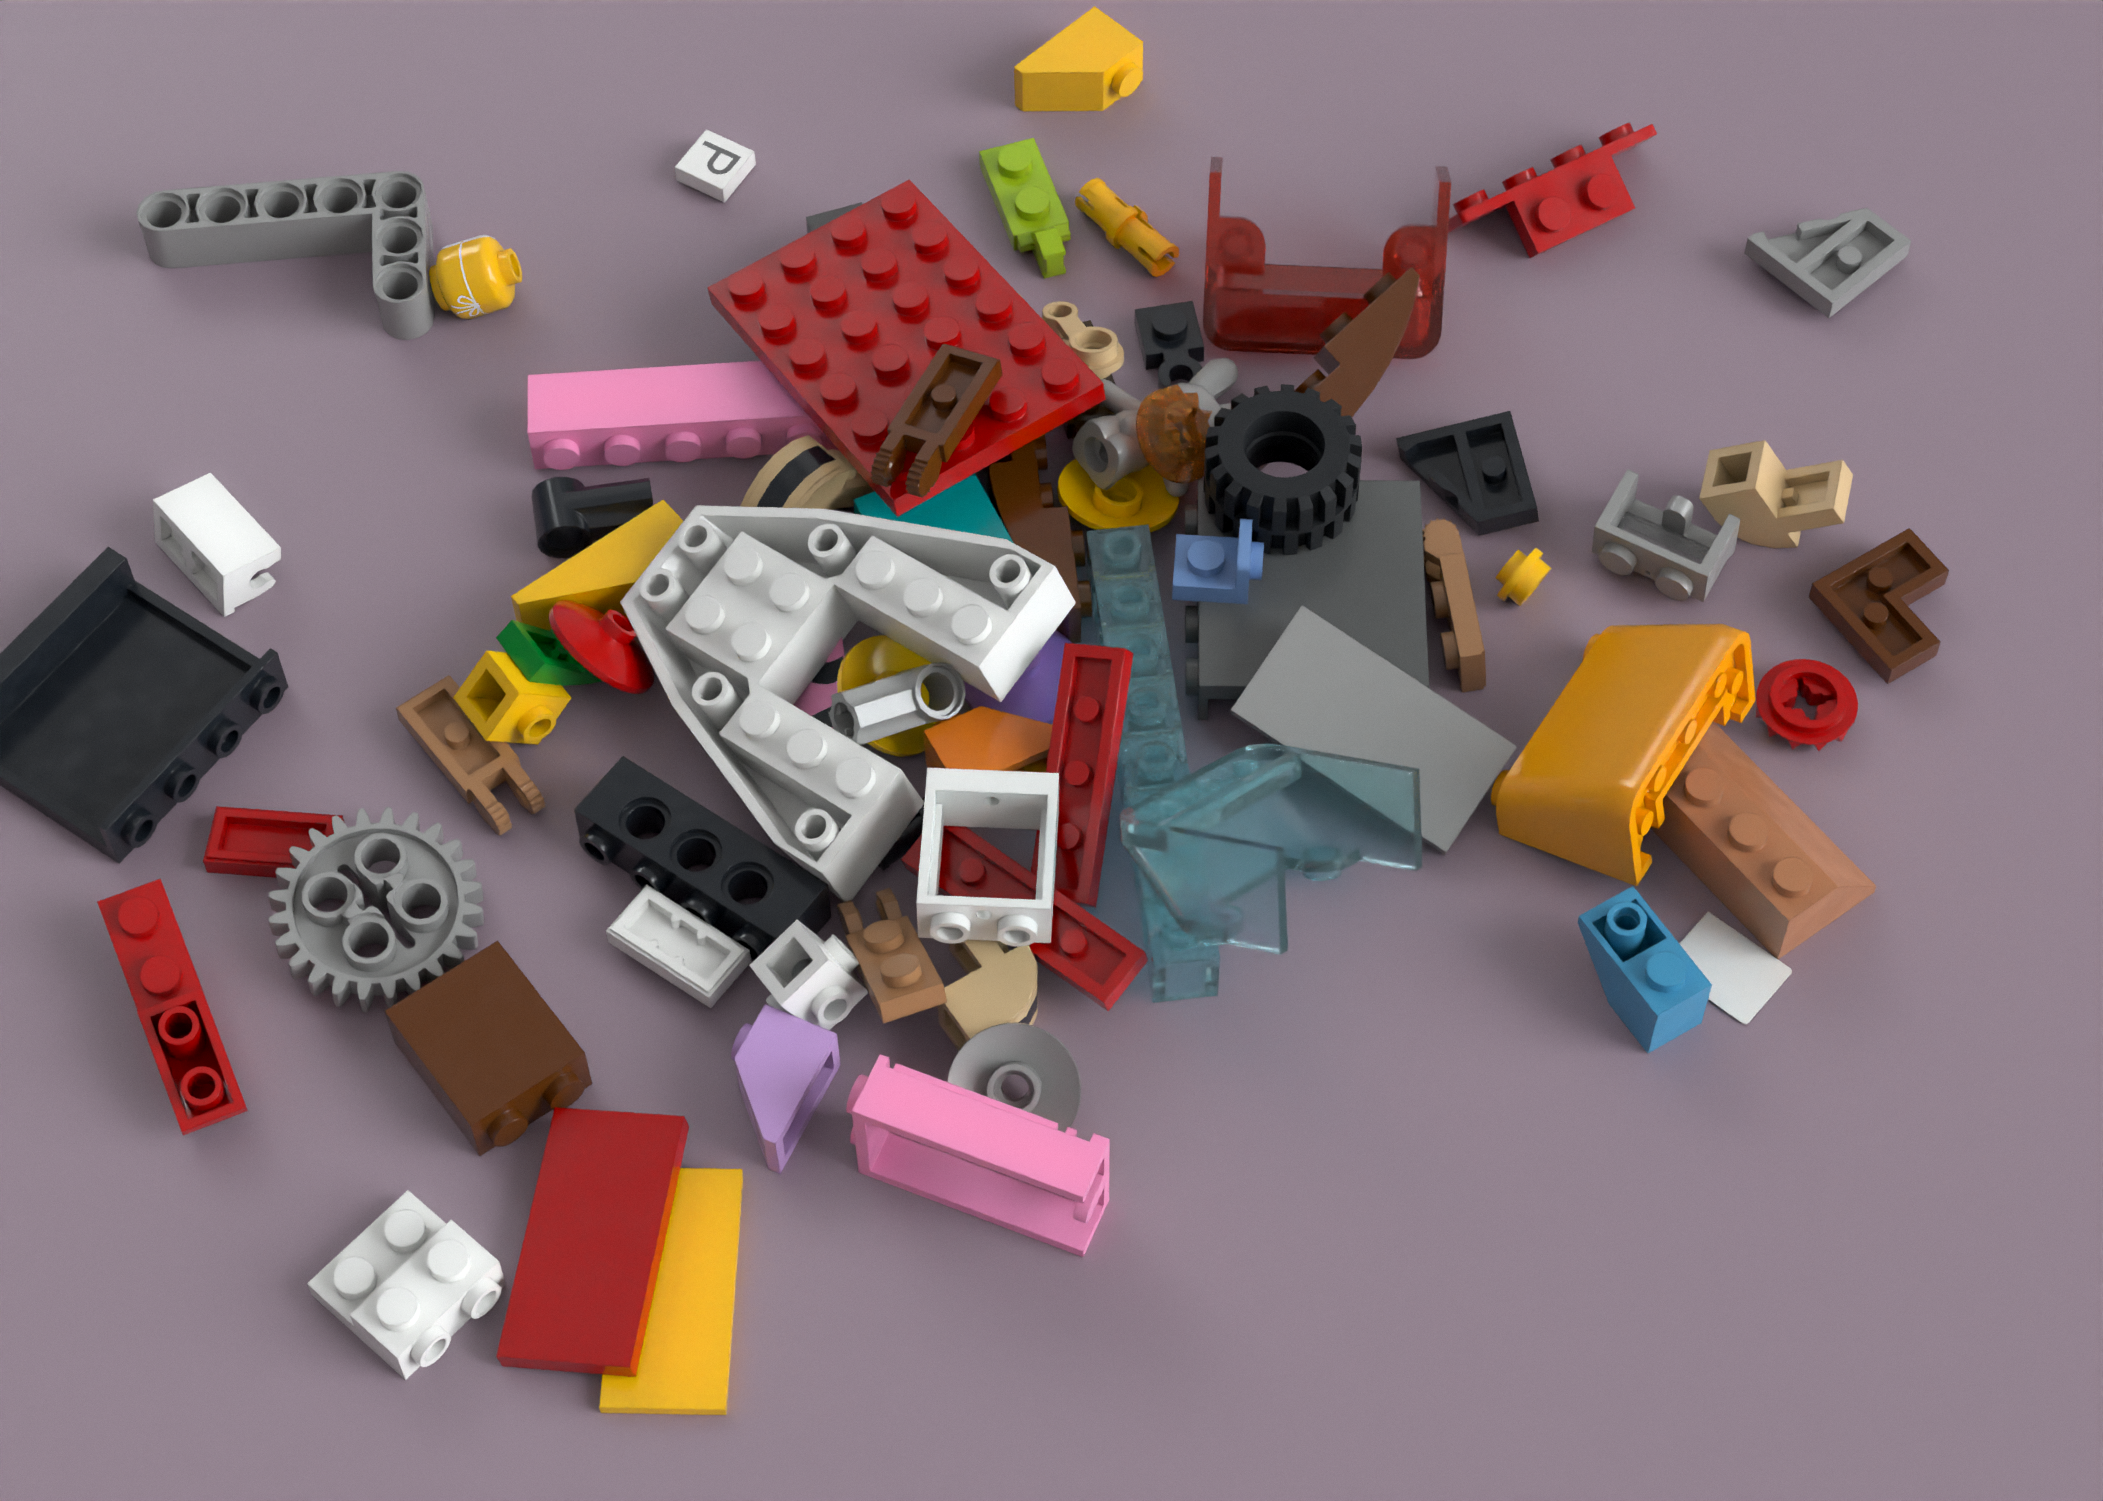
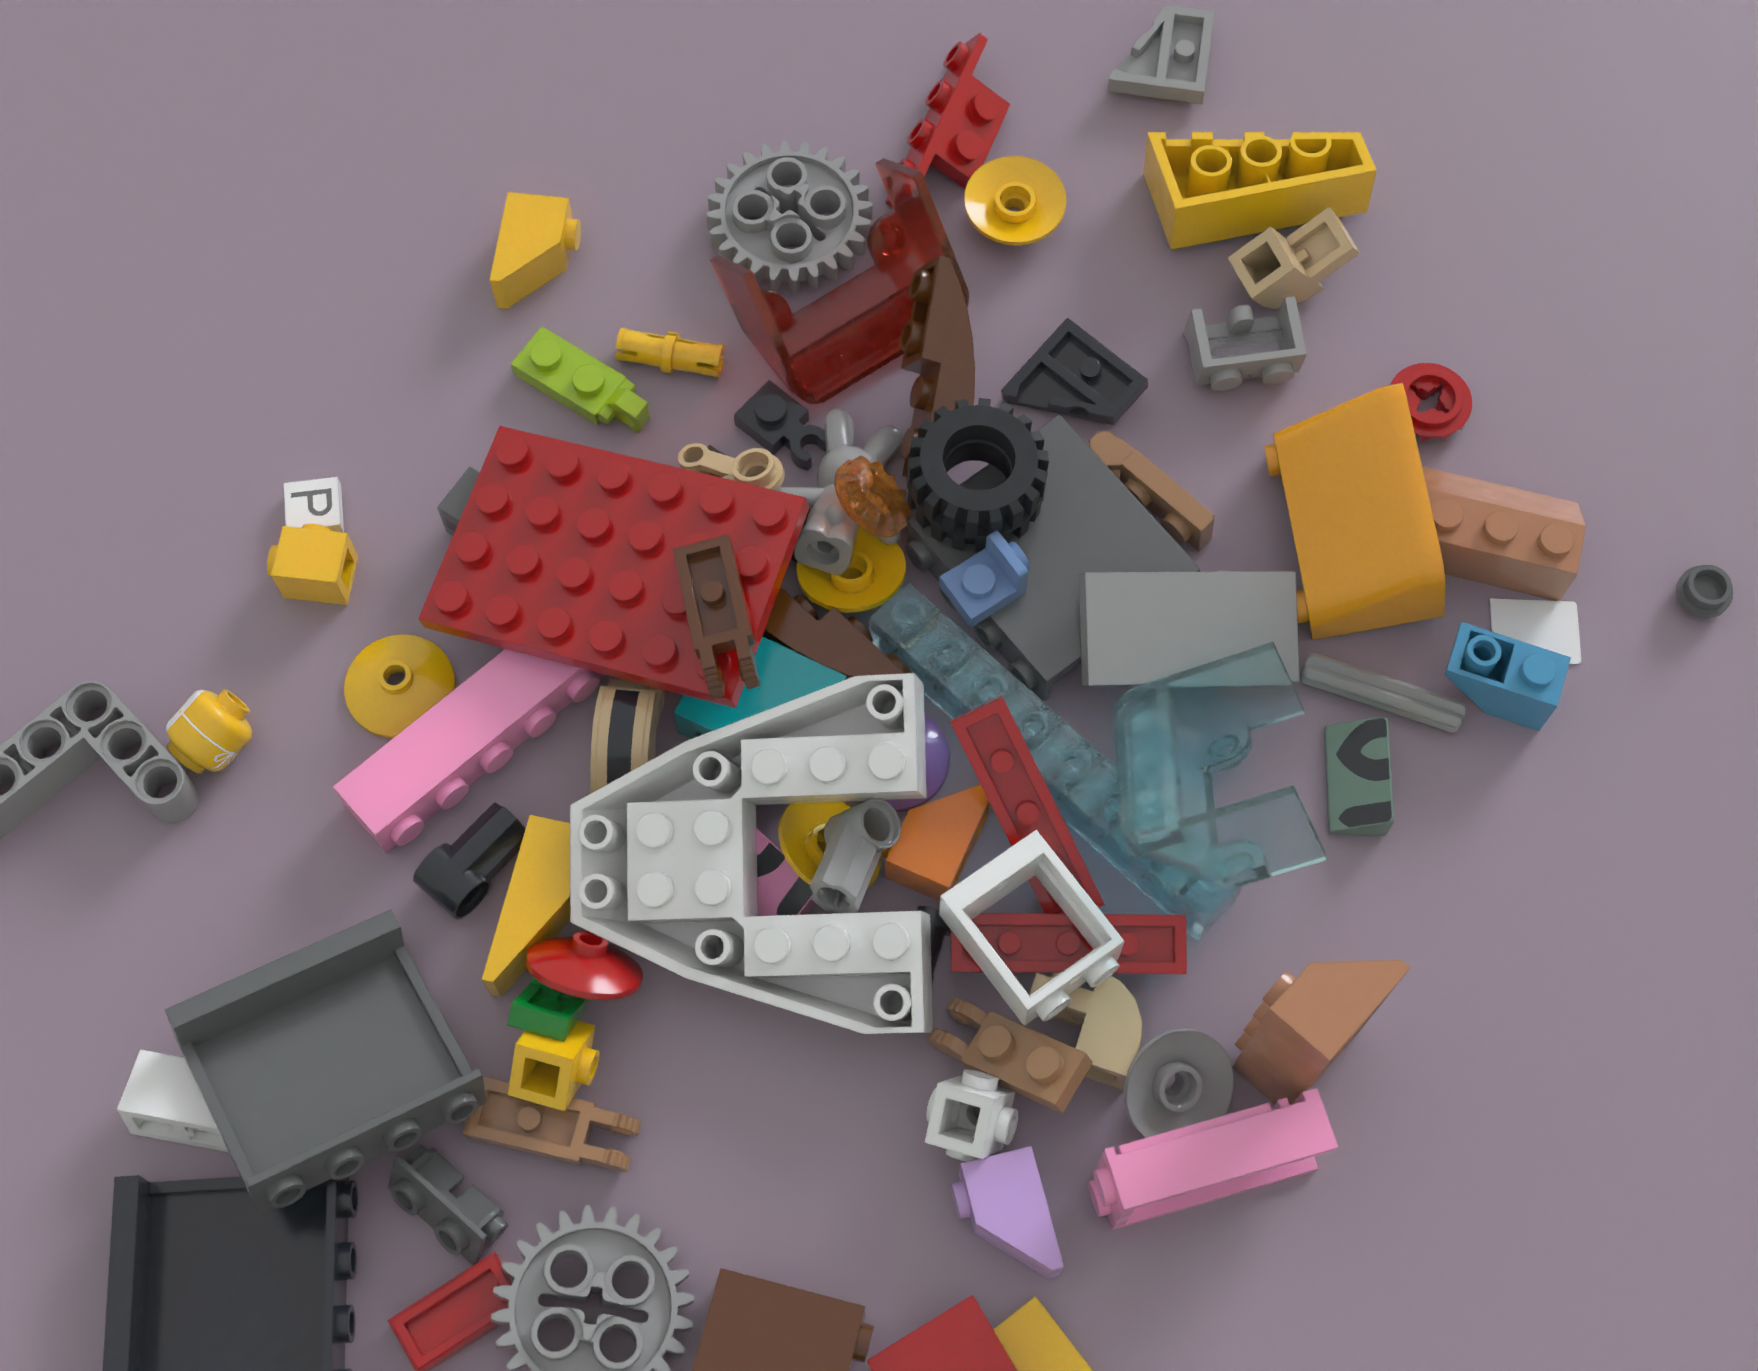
camera: 40 degrees left, 10 degrees up
(333, 731) = (424, 1188): none -> dark grey hinge
(339, 569) = (324, 1061): none -> dark grey panel
(635, 339) = (392, 708): none -> yellow dish
(637, 803) = (715, 1068): black brick -> none
(672, 206) = (313, 564): none -> yellow brick
(678, 946) = (841, 1160): white plate -> none
(1160, 1088) = (1311, 1022): none -> nougat slope
(1298, 192) = (790, 215): none -> light grey gear
(1427, 969) = (1359, 777): none -> sand green slope
(1520, 916) = (1383, 692): none -> light grey axle
(1522, 576) = (1175, 437): yellow plate -> none
(1560, 271) = (1017, 184): none -> yellow dish
(1762, 386) = (1246, 185): none -> yellow wedge
(1871, 603) = (1409, 303): reddish brown plate -> none
(1929, 1041) = (1704, 591): none -> dark grey plate

